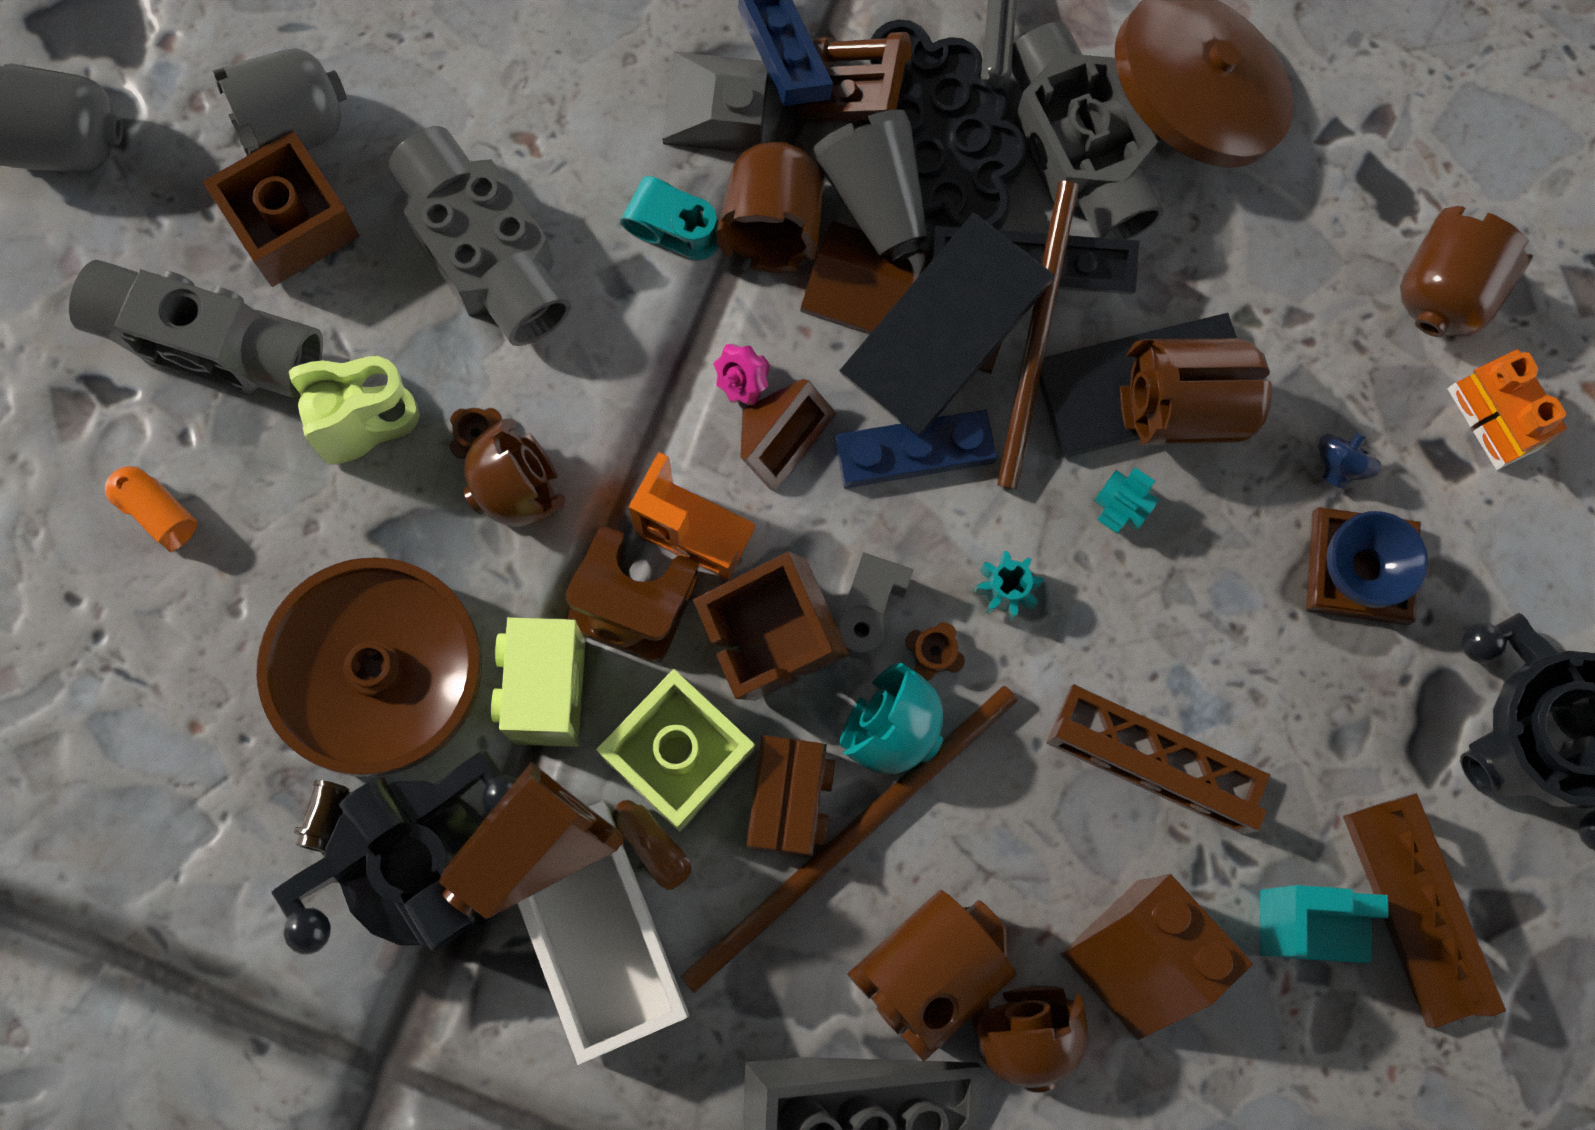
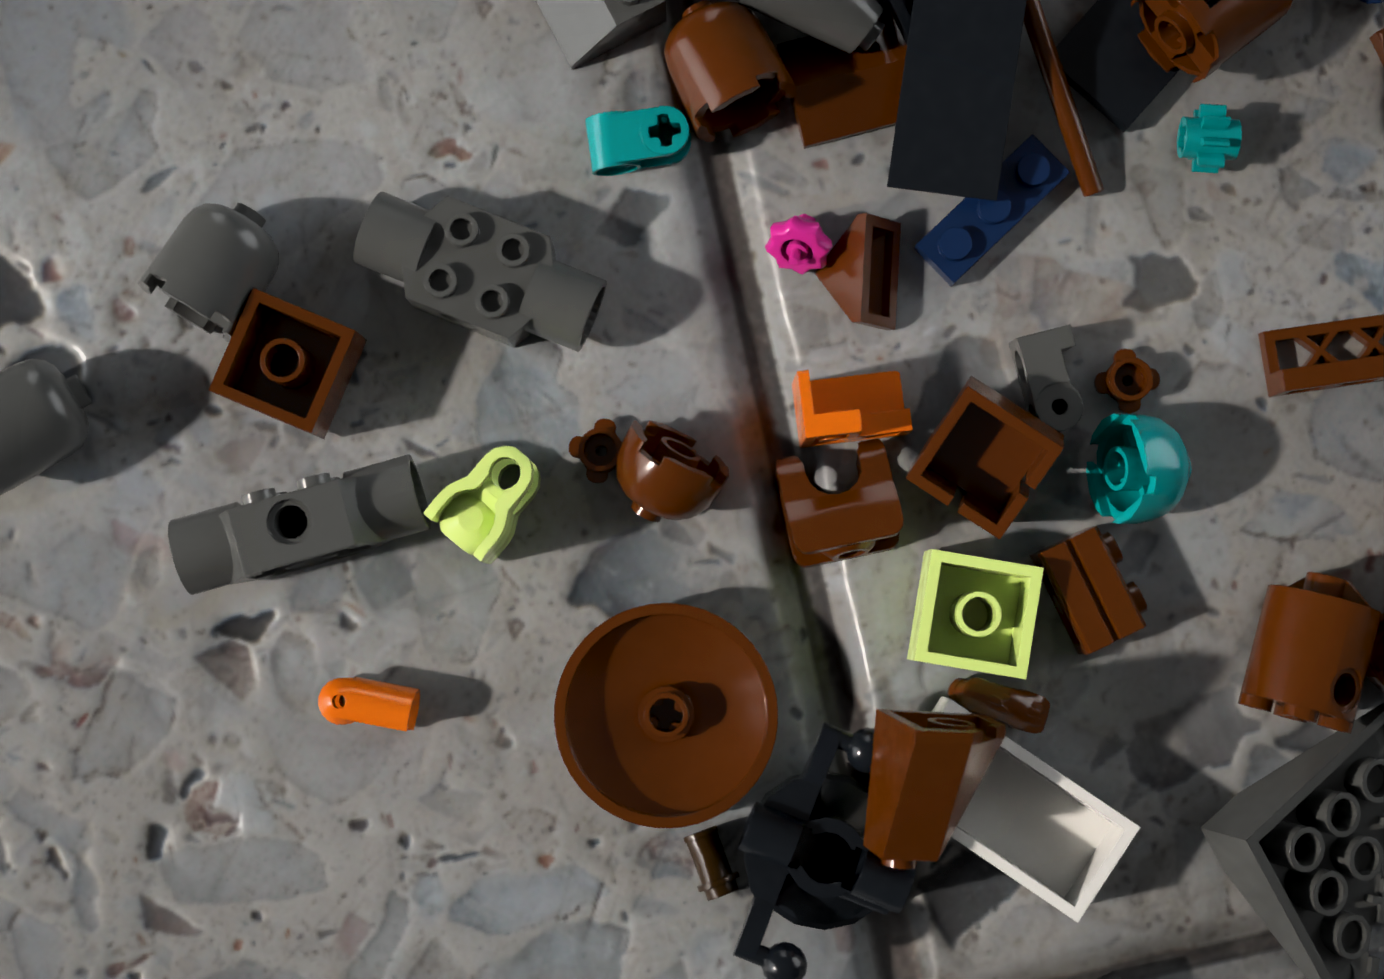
camera: 25 degrees left, 10 degrees up
(540, 682) = (826, 634): yellowish green brick -> none
(846, 841) = (1158, 593): reddish brown piece -> none
(997, 576) = (1145, 292): teal gear -> none

